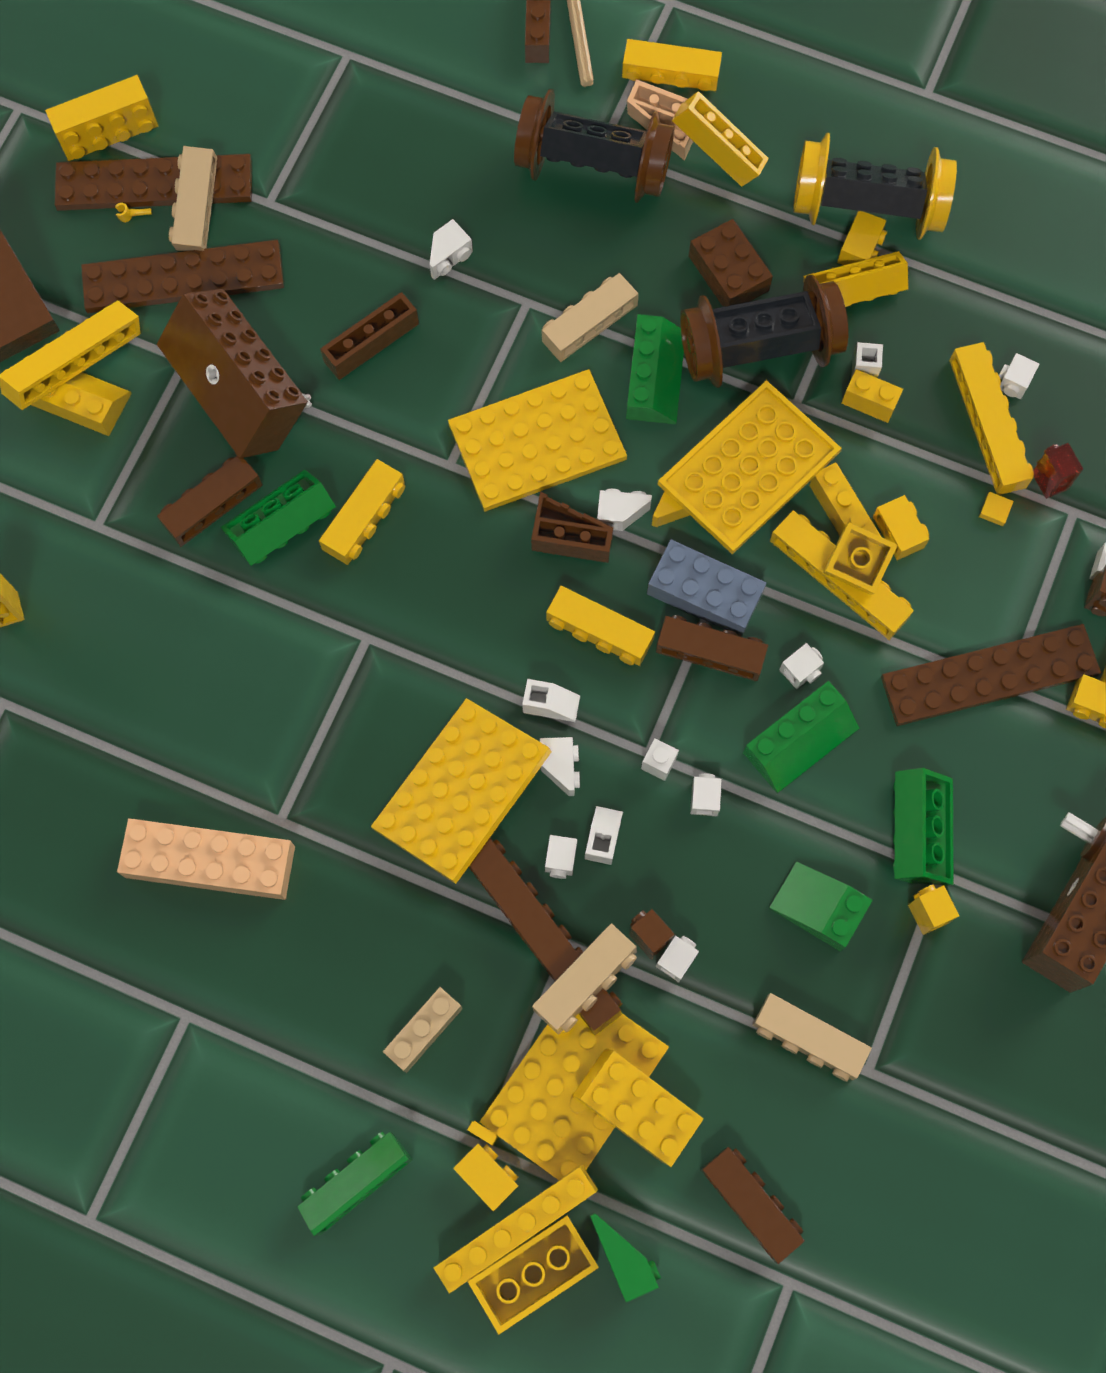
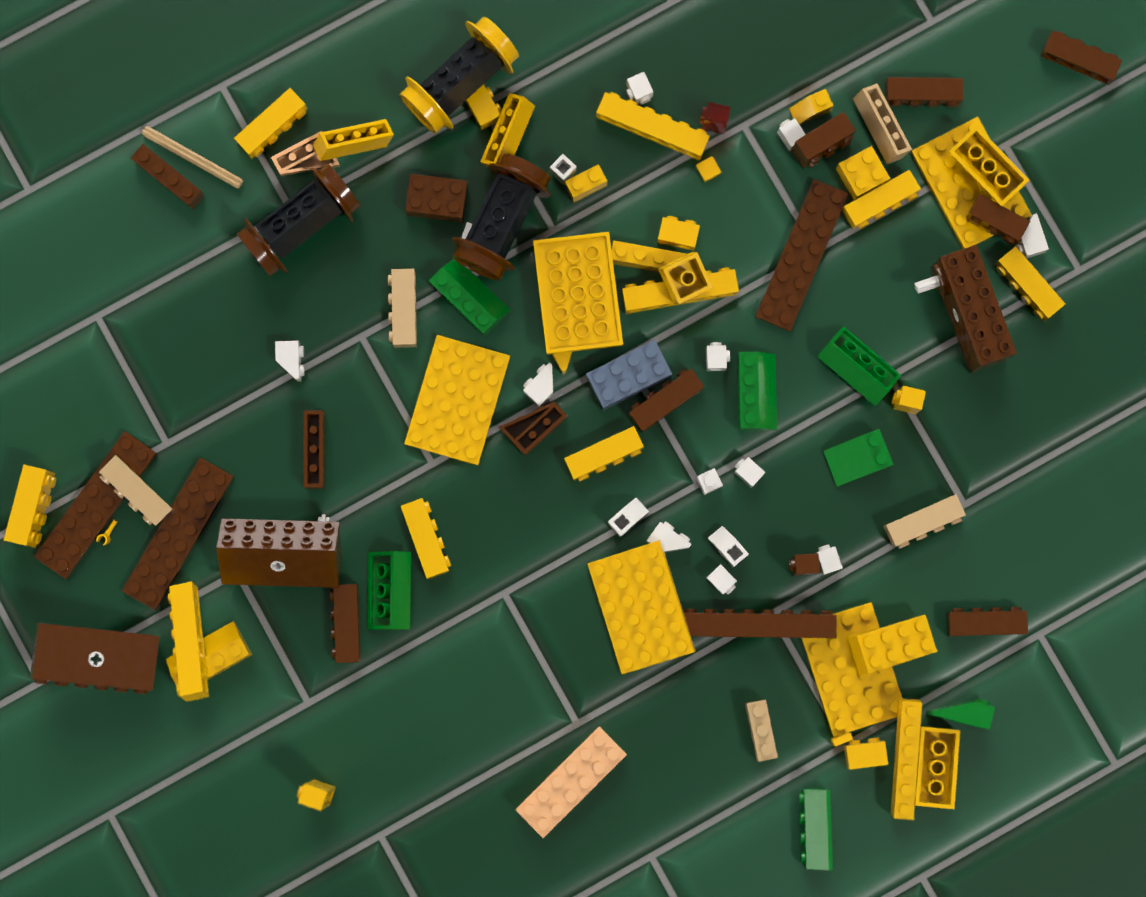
camera: 55 degrees left, 10 degrees up
(585, 979) = (806, 621): tan brick -> none

